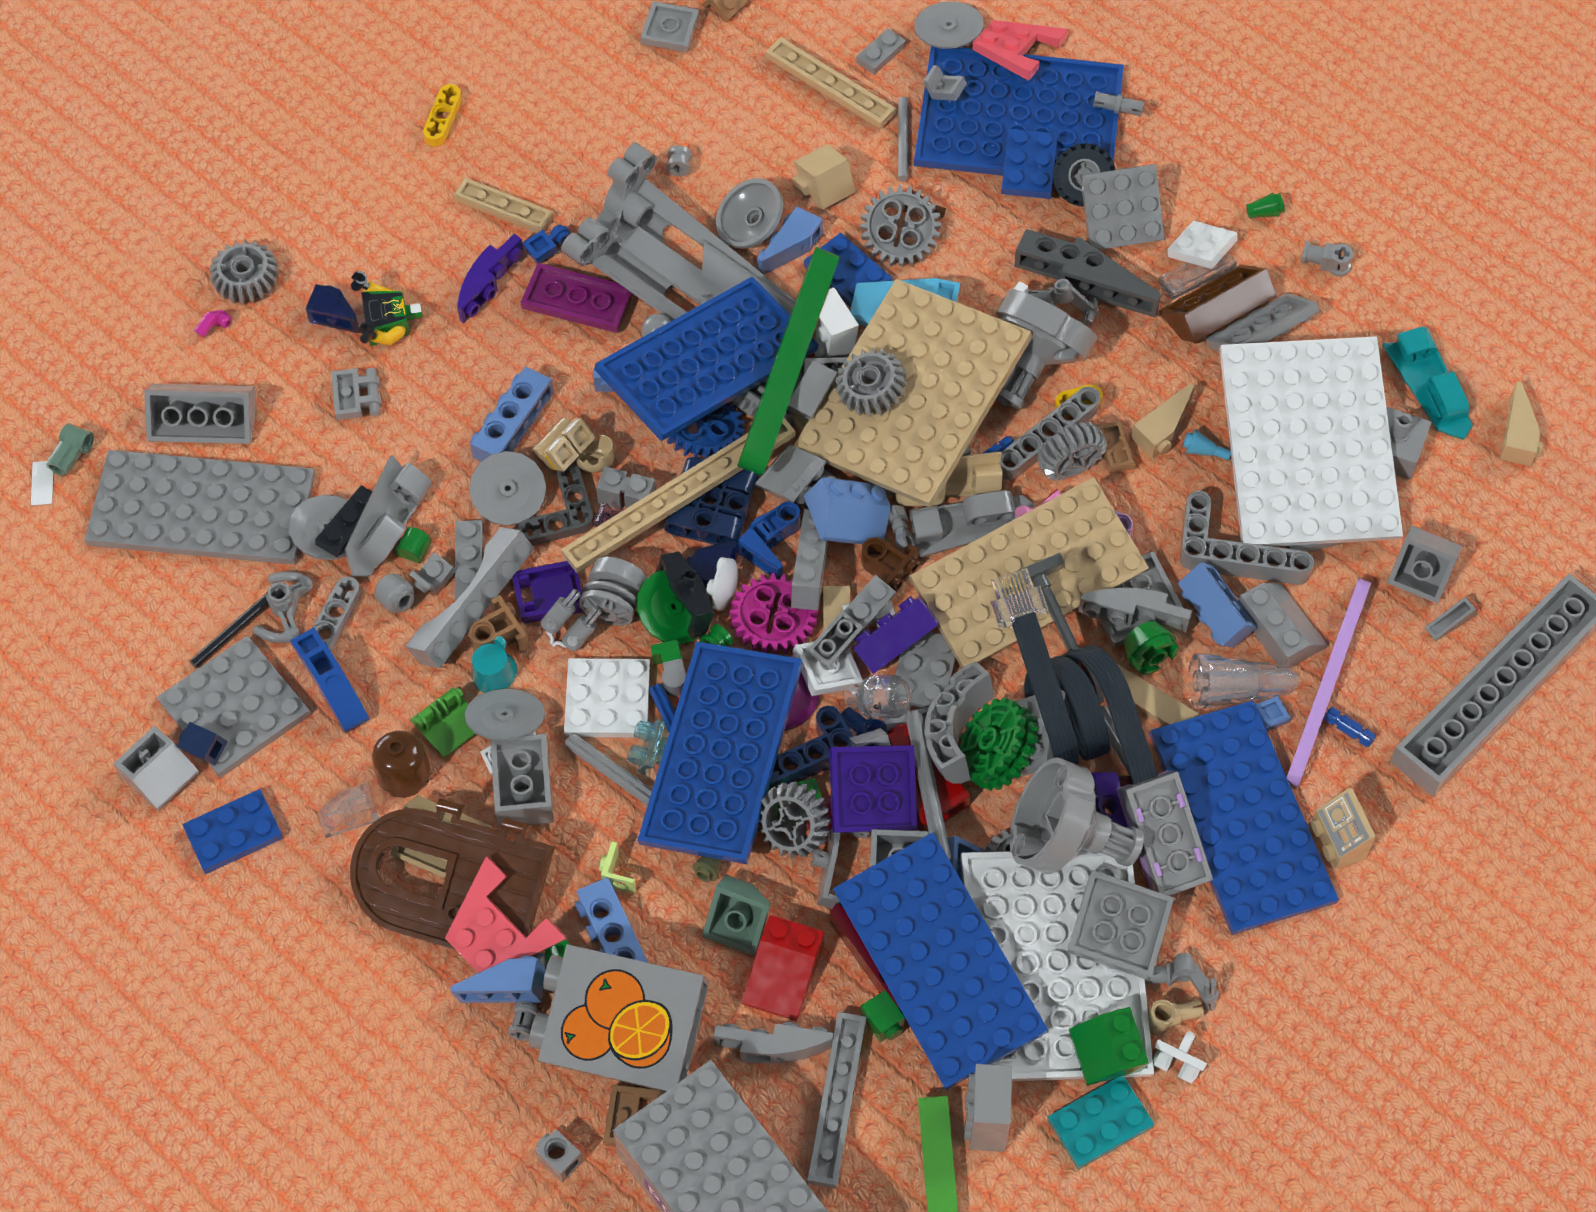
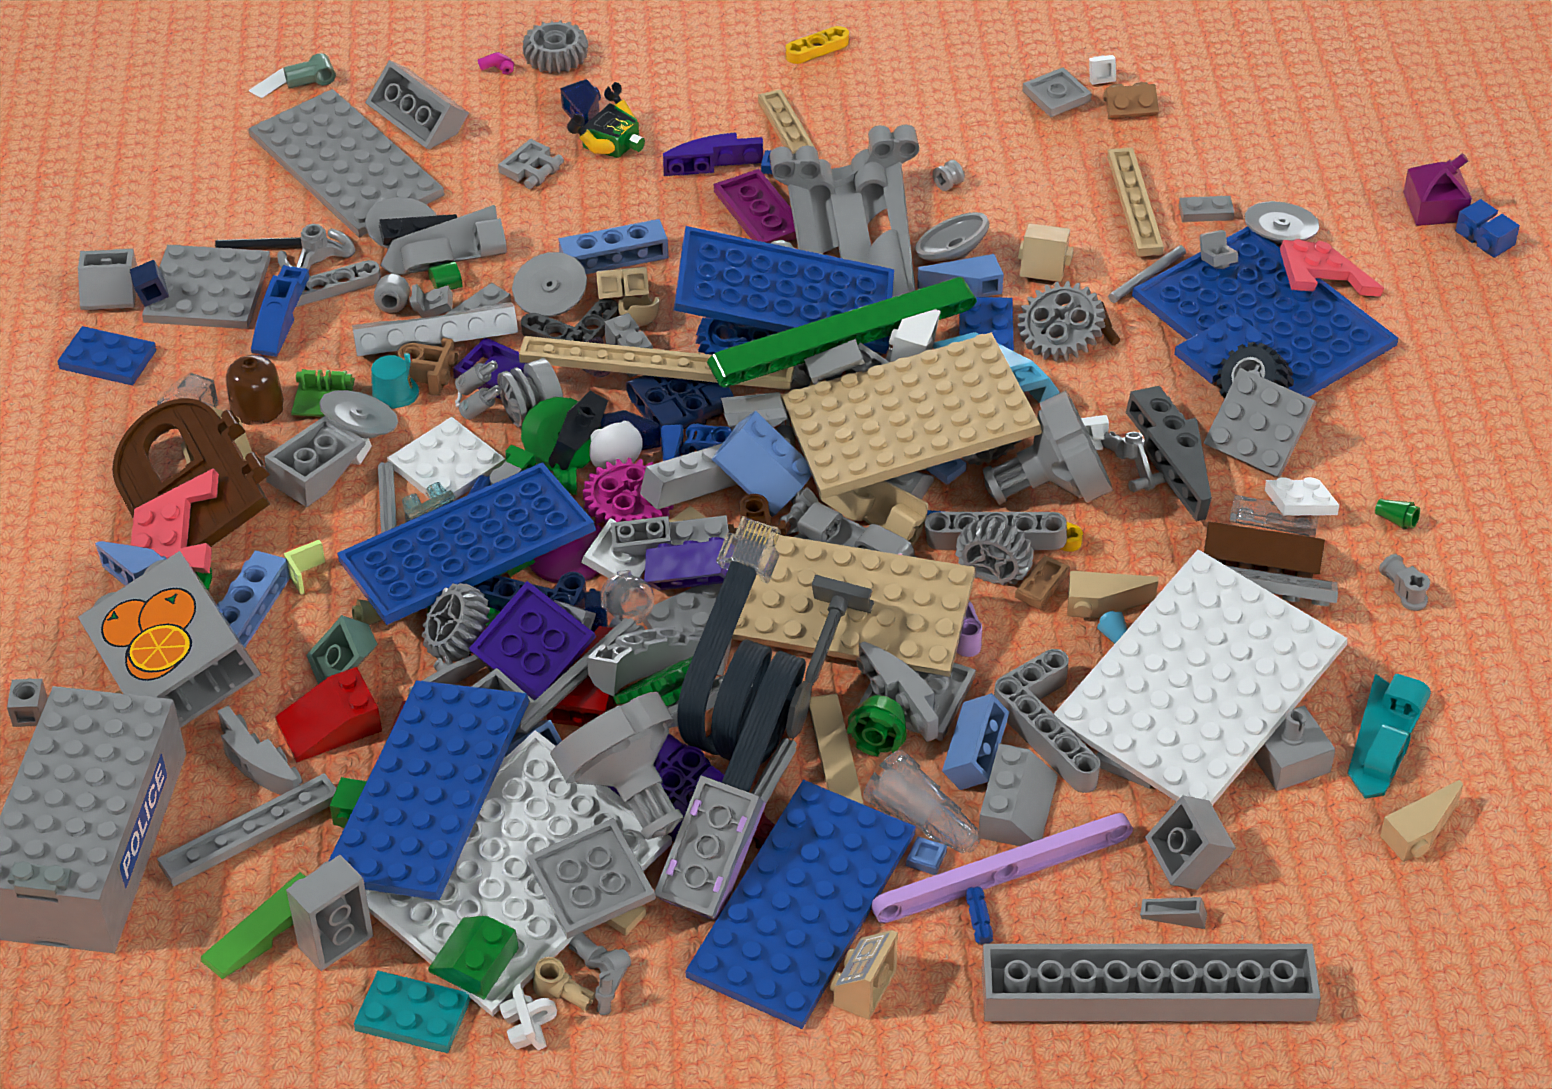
camera: 45 degrees right, 15 degrees down
(867, 367) = (877, 379): light grey gear -> none
(1118, 104) = (1354, 356): light grey pin -> none

